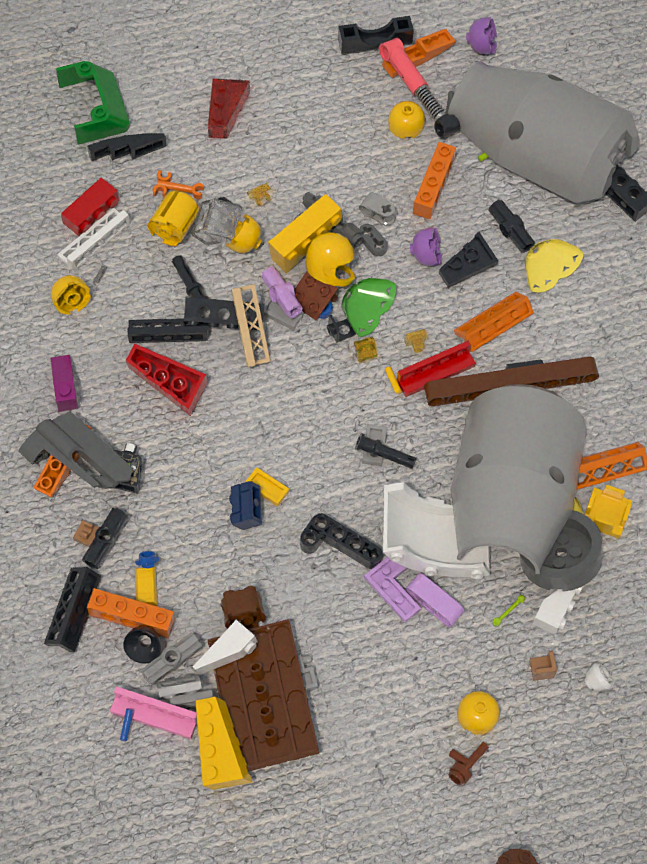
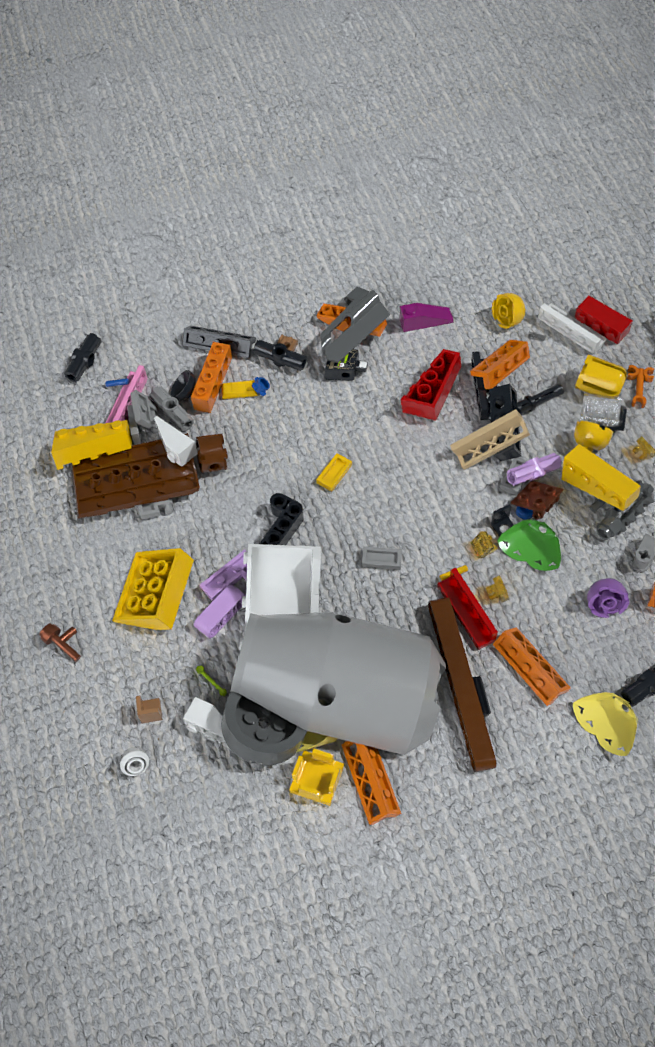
camera: 95 degrees right, 5 degrees down
(83, 768) = (83, 357): none -> black piece
(149, 303) = (502, 362): none -> orange fence
(246, 505) = (311, 452): dark blue brick -> none
(328, 253) = (576, 497): yellow piece -> none
(374, 238) = (608, 547): dark grey beam -> none
(376, 448) = (373, 553): black pin -> none
(407, 670) = (154, 589): none -> yellow slope
(468, 262) = (599, 641): black wing -> none
(478, 712) = (109, 651): yellow cylinder -> none

